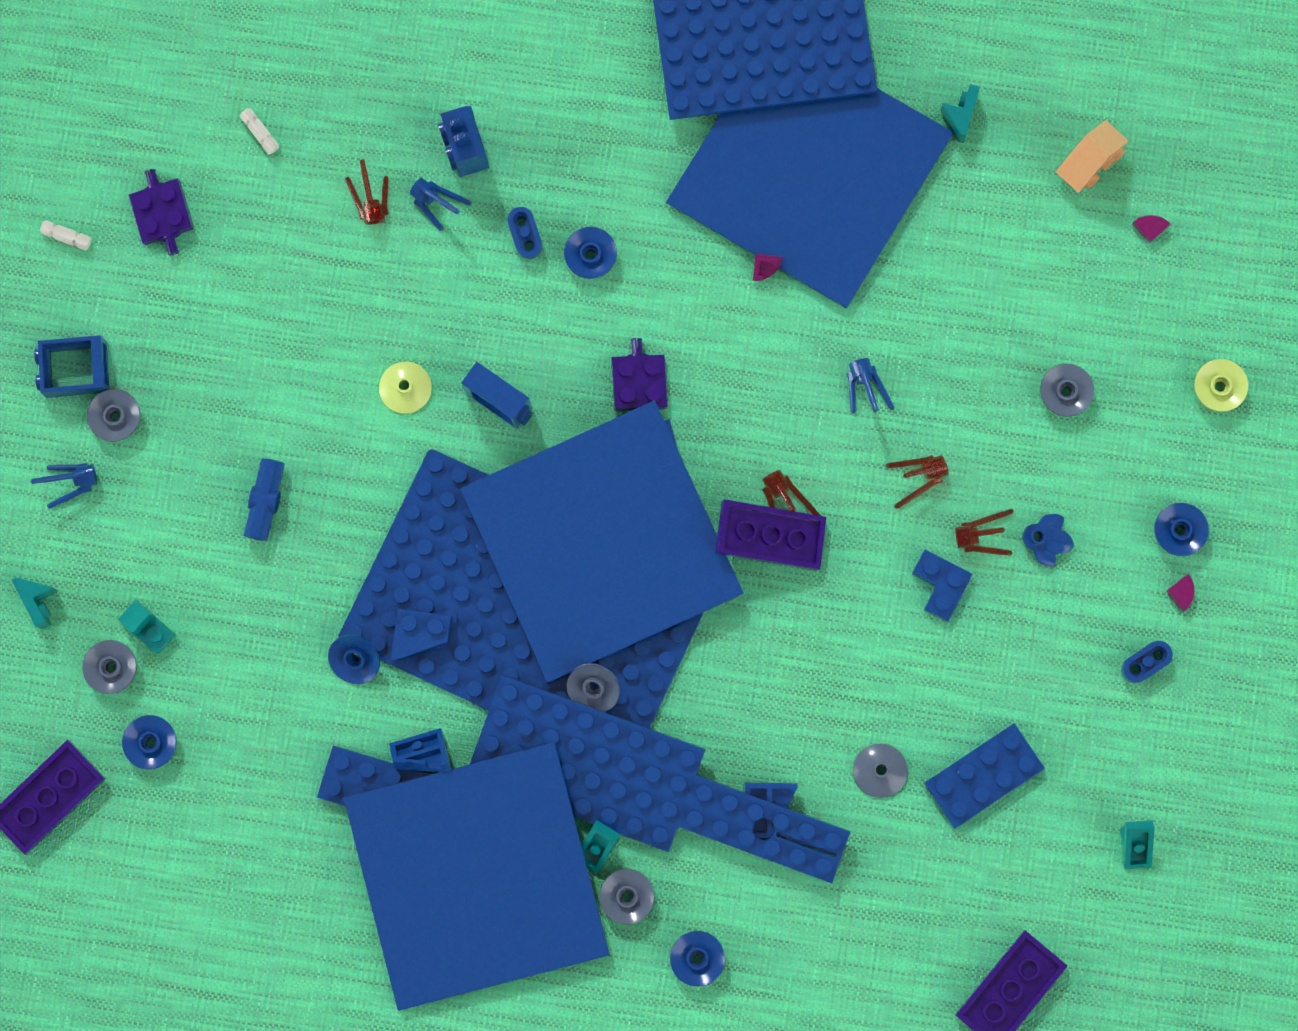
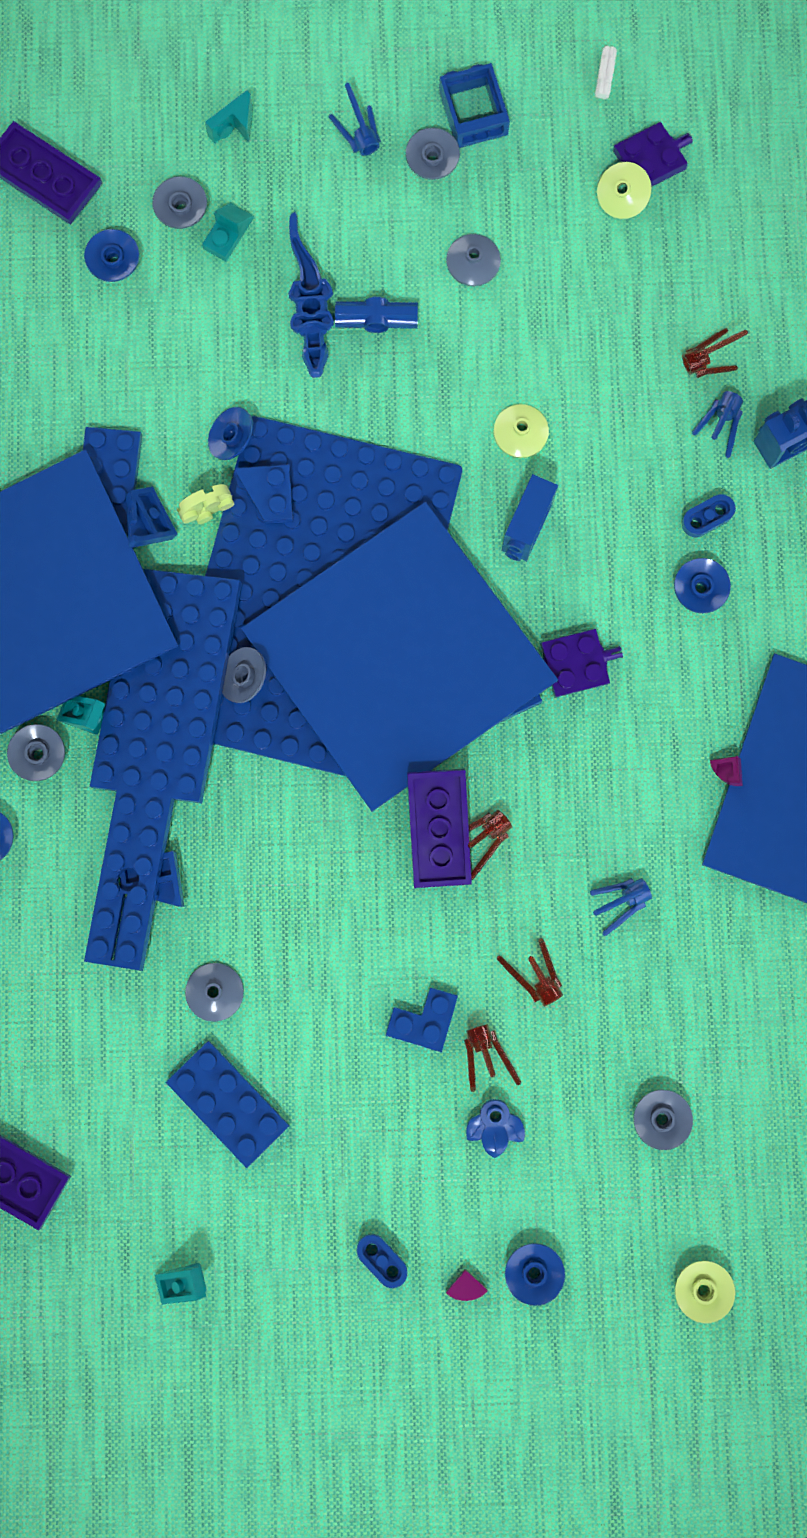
camera: 70 degrees right, 0 degrees up
(184, 230) = (636, 197): none -> yellowish green dish
(234, 408) = (469, 270): none -> sand blue dish
(236, 557) = (311, 297): none -> blue animal
(259, 131) = (755, 233): white axle -> none
(422, 694) = (198, 504): none -> yellowish green plate

